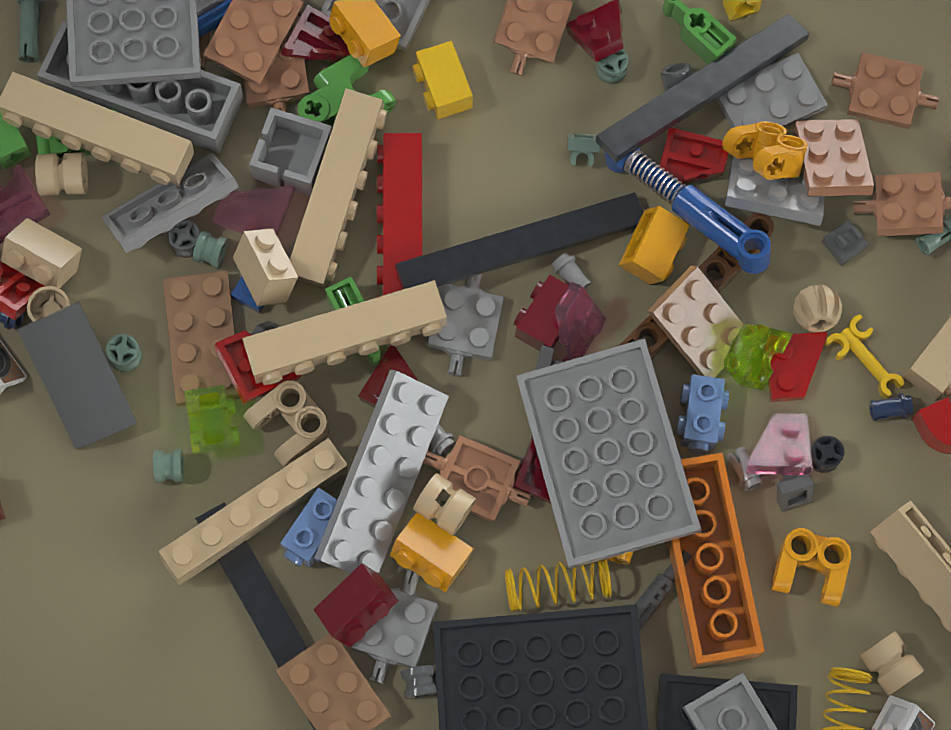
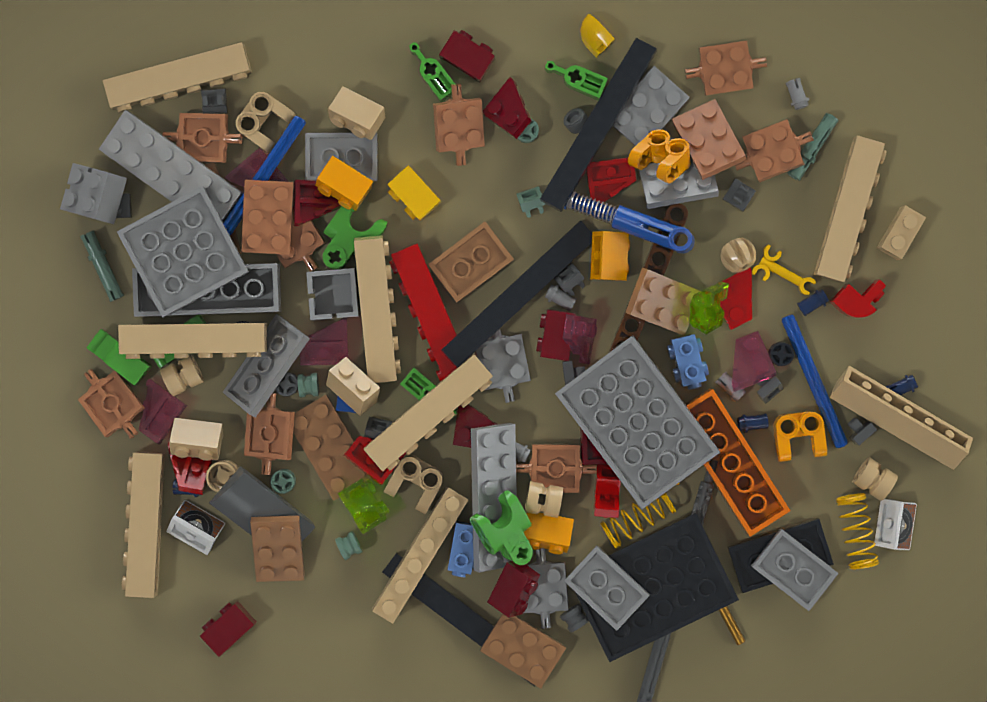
camera: 20 degrees left, 15 degrees up
(76, 428) = (277, 548): none -> medium nougat plate
(134, 286) = (269, 435): none -> nougat plate
(378, 522) = (507, 532): none -> bright green piece
(478, 187) = (471, 262): none -> medium nougat plate
(479, 654) = (607, 587): none -> light grey plate
(531, 532) = (606, 492): none -> red brick
(592, 253) = (569, 278): none -> dark grey tile
(756, 526) = (752, 422): none -> dark blue pin
(856, 509) = (814, 381): none -> blue axle
(894, 593) = (861, 432): none -> dark grey tile

